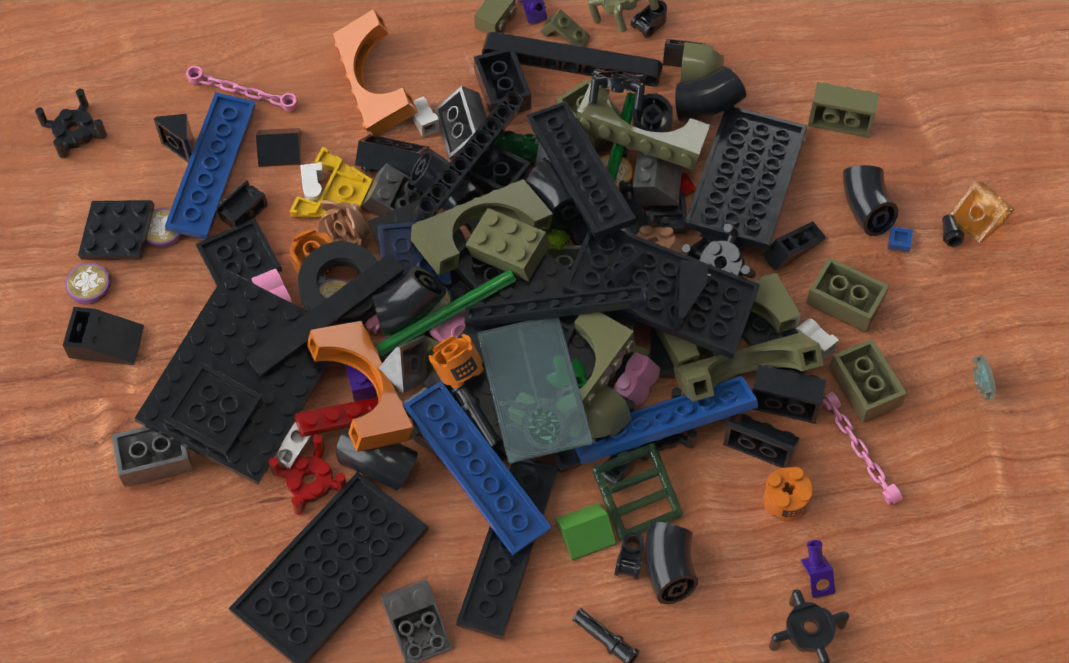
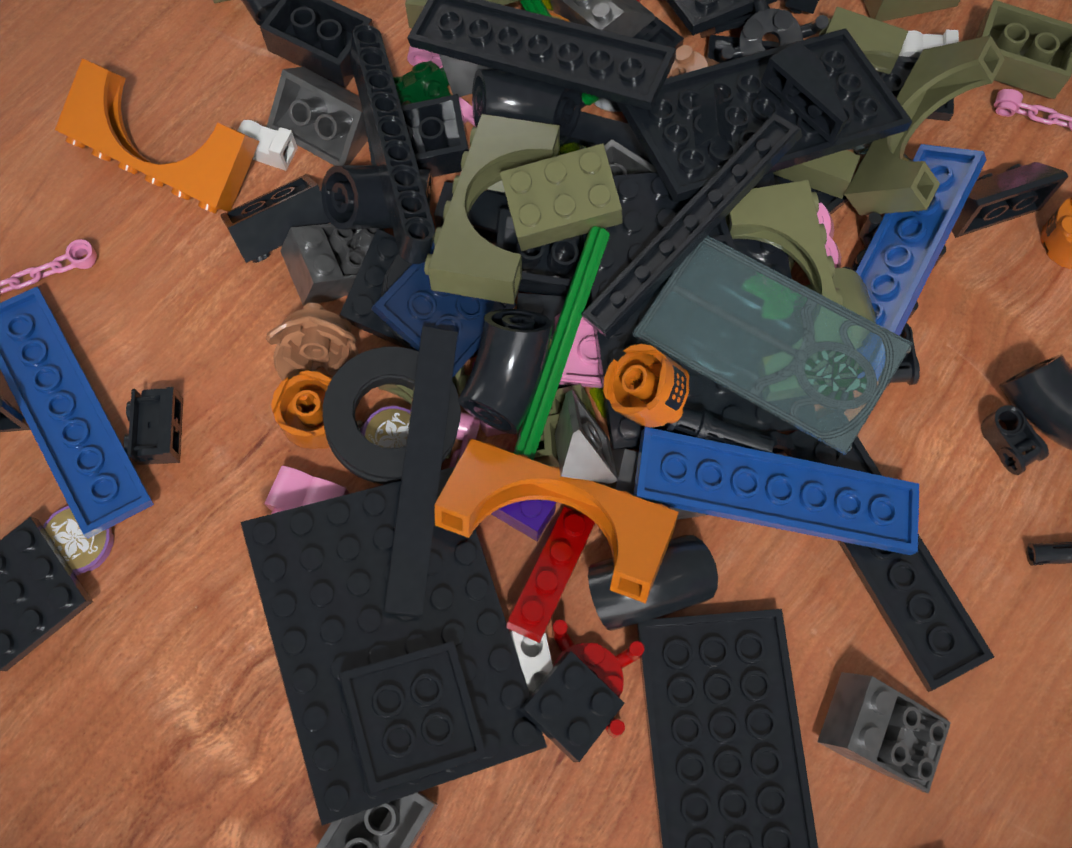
camera: 45 degrees left, 10 degrees up
(87, 283) = (49, 694): tile -> none
(102, 337) = (146, 748): black slope -> none
(239, 250) = (213, 490): black plate -> none
(279, 147) = (125, 317): black slope -> none
(286, 475) = (572, 706): none -> black plate
(311, 176) = (222, 334): white leg -> none
(344, 185) = (261, 301): yellow wing -> none
(586, 531) = (935, 452): bright green slope -> none
(658, 470) = (975, 335): clear green bar -> none
(788, 393) = (982, 119): black brick -> none

